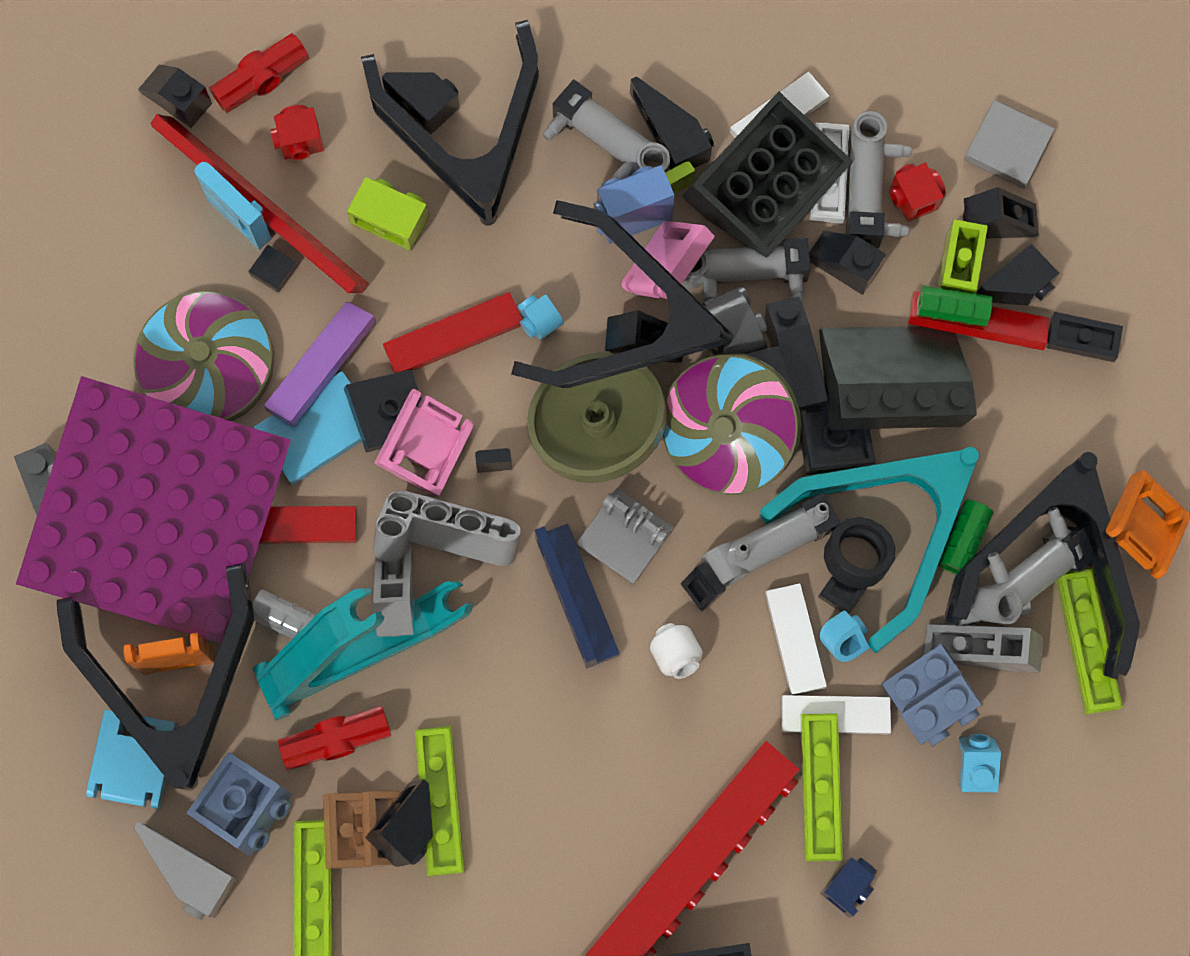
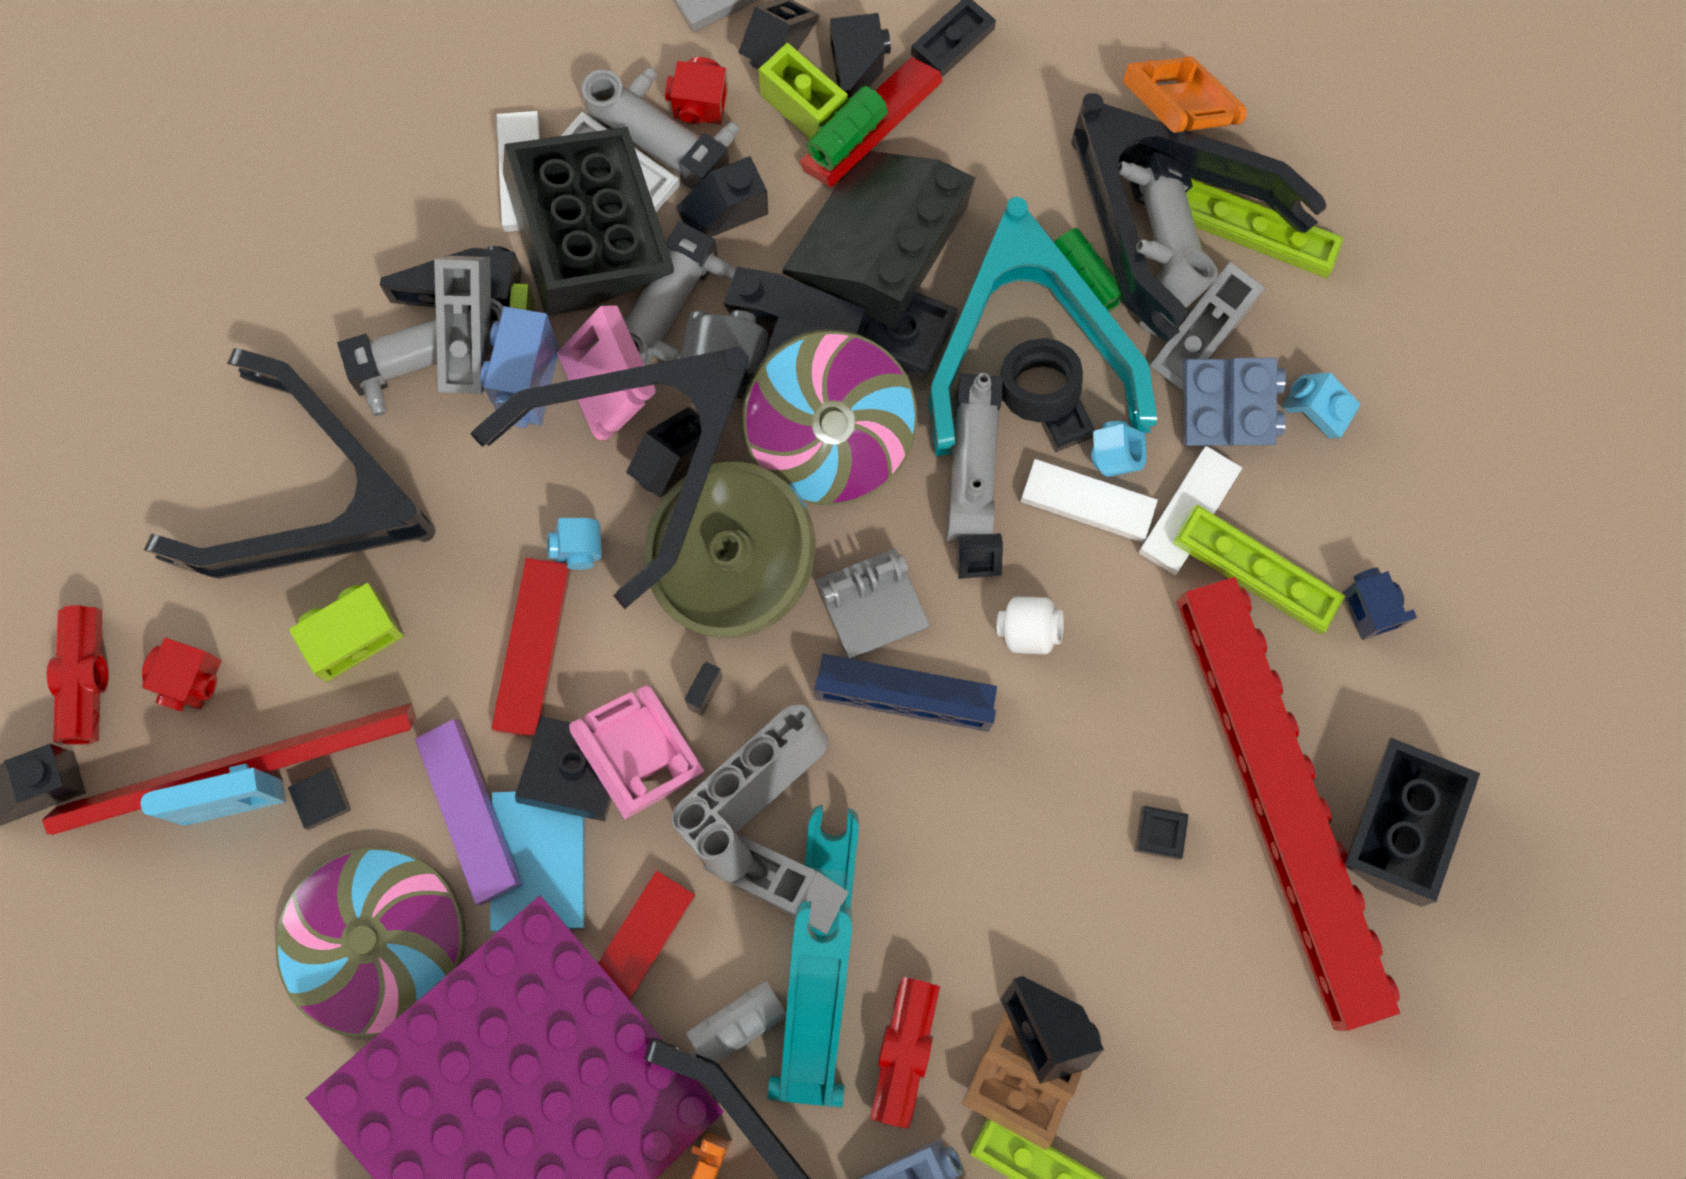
camera: 60 degrees left, 0 degrees up
(423, 96) = (238, 512): black slope -> none
(437, 767) = (1006, 958): lime tile -> none
(588, 827) = (1161, 833): none -> black tile
(638, 144) = (462, 321): none -> light grey slope

